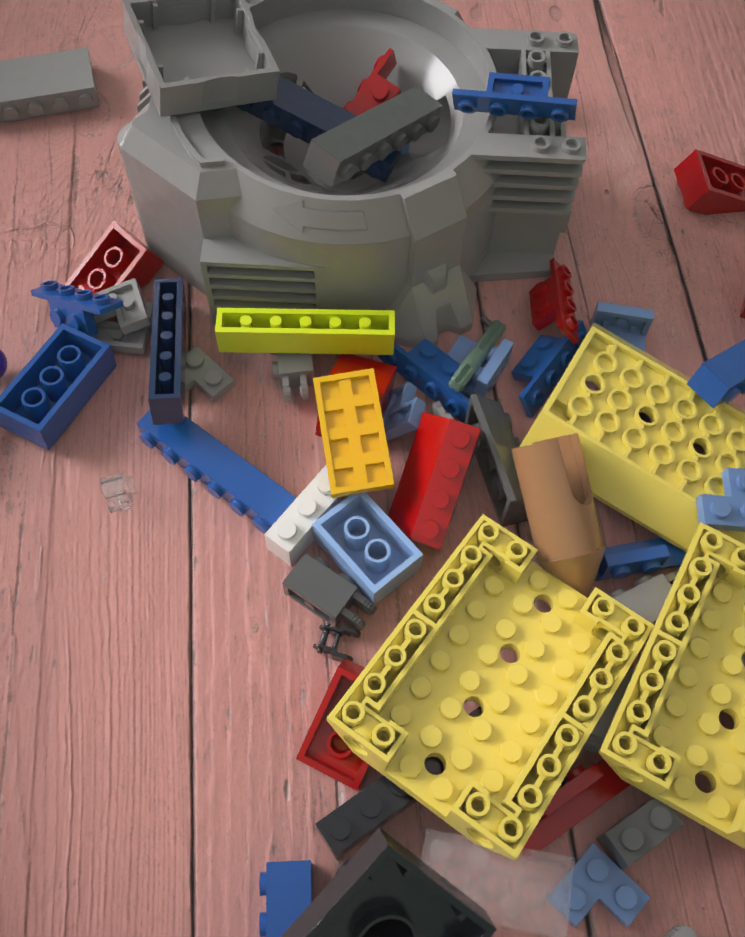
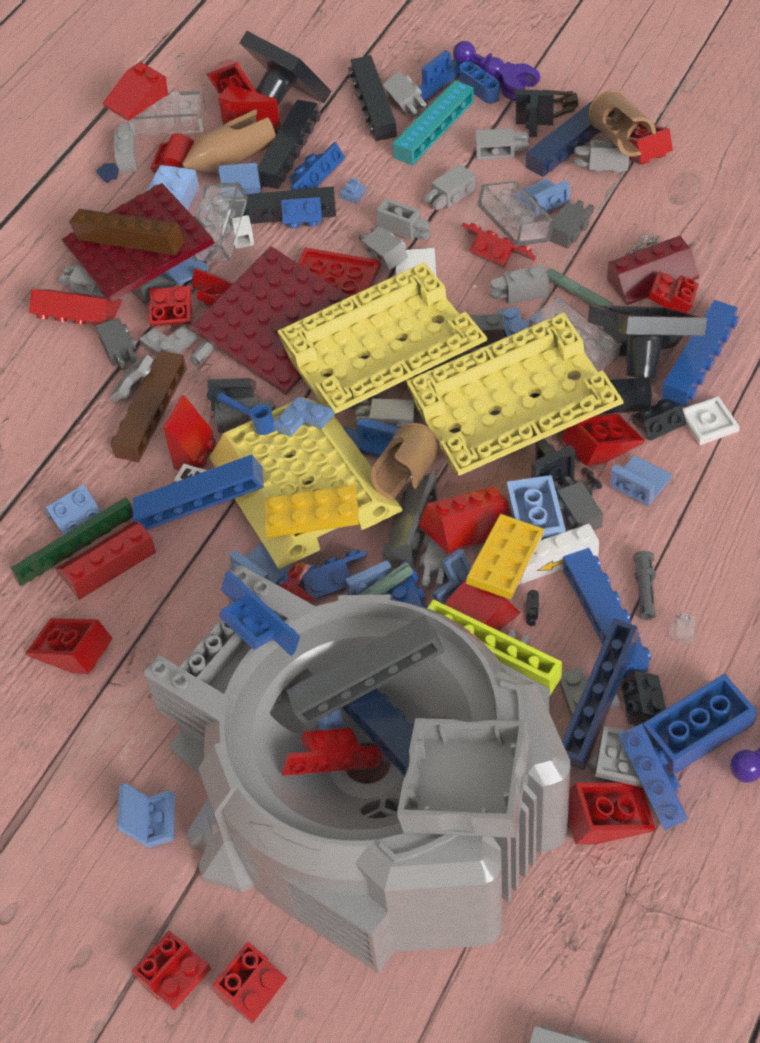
camera: 140 degrees left, 10 degrees down
(125, 394) = (642, 696): none -> black bracket
(193, 538) = (645, 575): none -> dark grey pin
(220, 851) = (710, 420): none -> white tile
(266, 678) = (639, 480): none -> medium blue bracket
(293, 809) = (660, 418): none -> black bracket
(303, 435) = (532, 607): none -> black piece
(383, 615) = (553, 462): none -> black bracket
(602, 365) = (311, 511): none -> yellow plate

